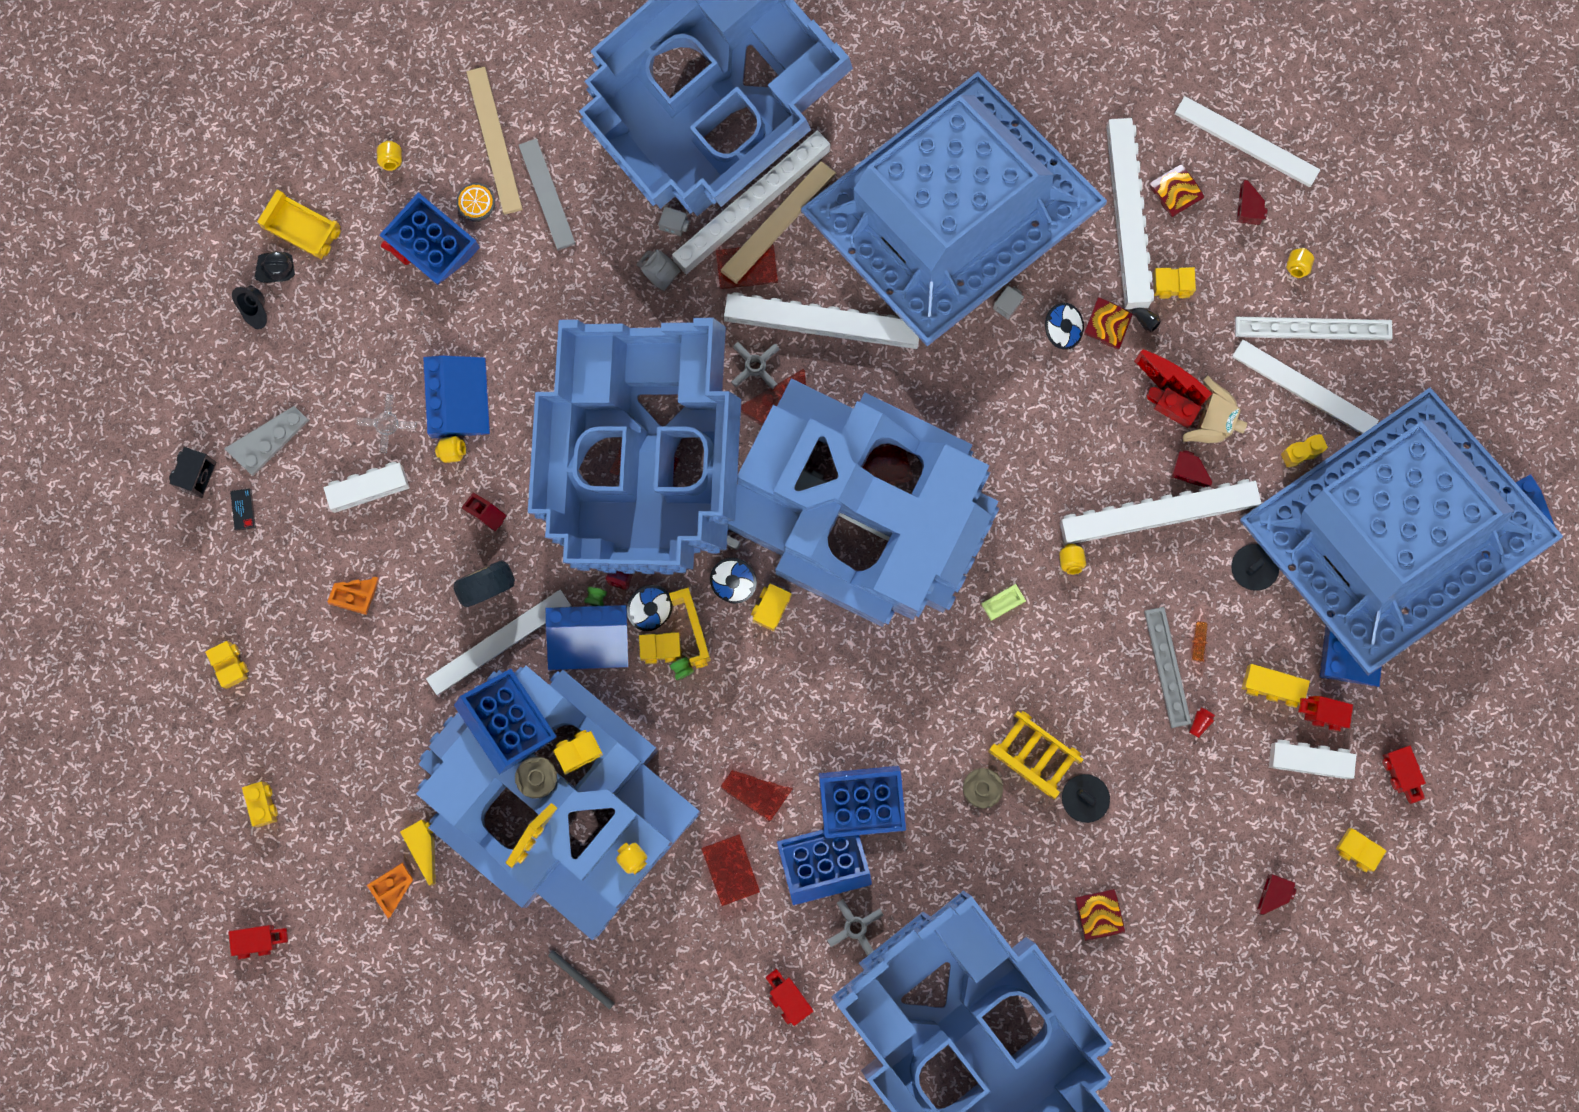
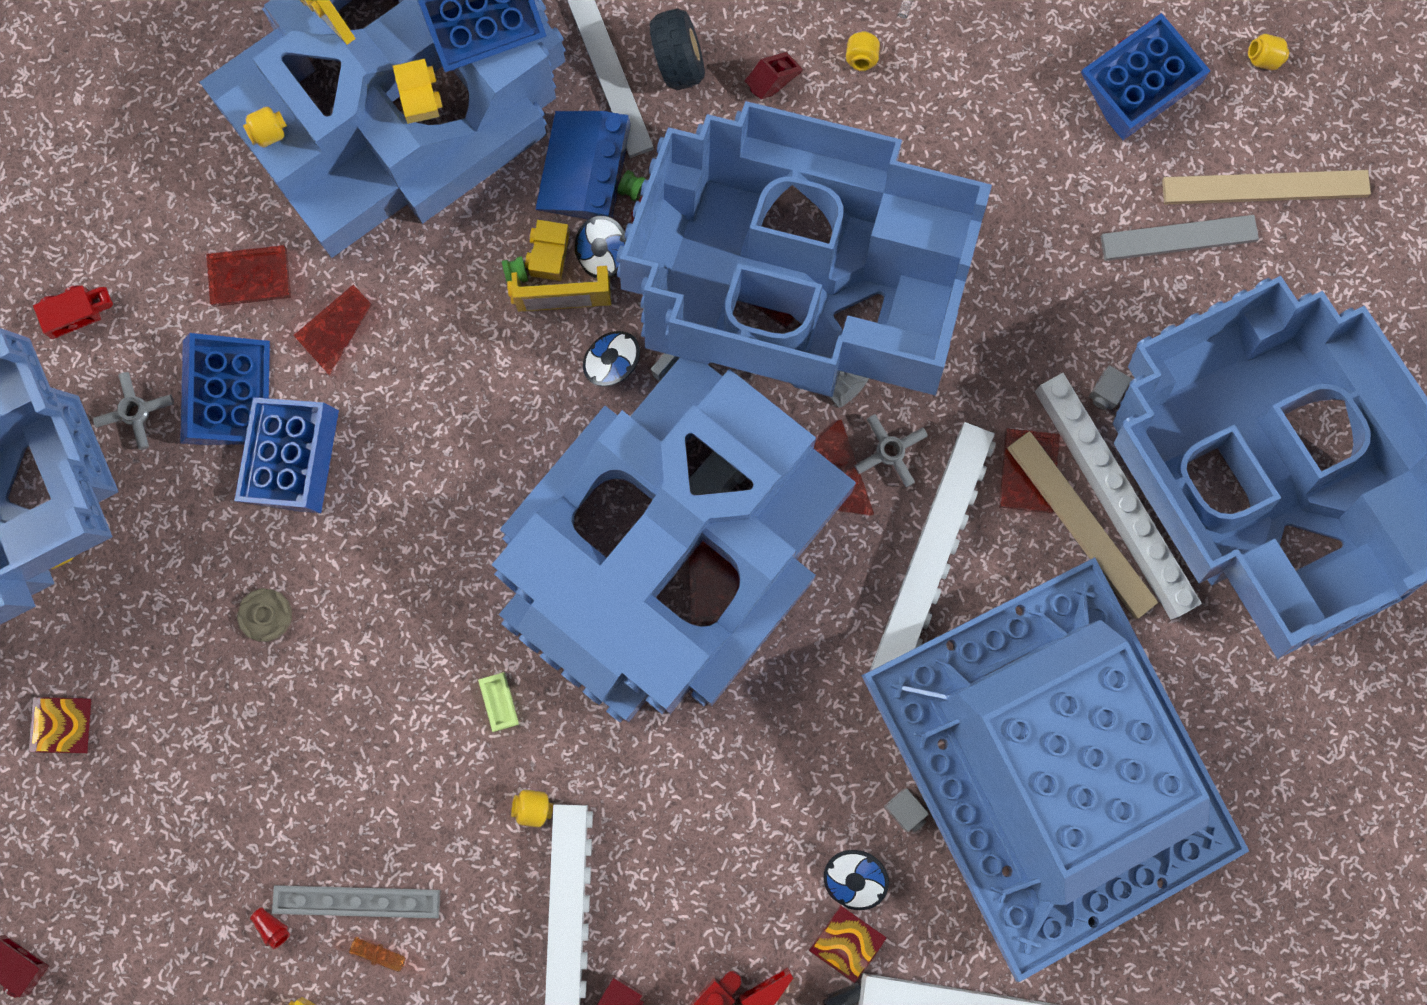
camera: 100 degrees right, 0 degrees up
(456, 396) = (931, 70): blue slope -> none
(475, 202) = (1185, 147): tile -> none
(536, 777) = (400, 37): dark tan tile -> none
(581, 979) = (169, 74): dark grey bar -> none
(658, 268) = (1048, 356): light grey piece -> none
(771, 607) = (565, 399): yellow brick -> none
(1033, 774) = (260, 683): yellow fence -> none
(1085, 798) = (214, 746): black shield -> none

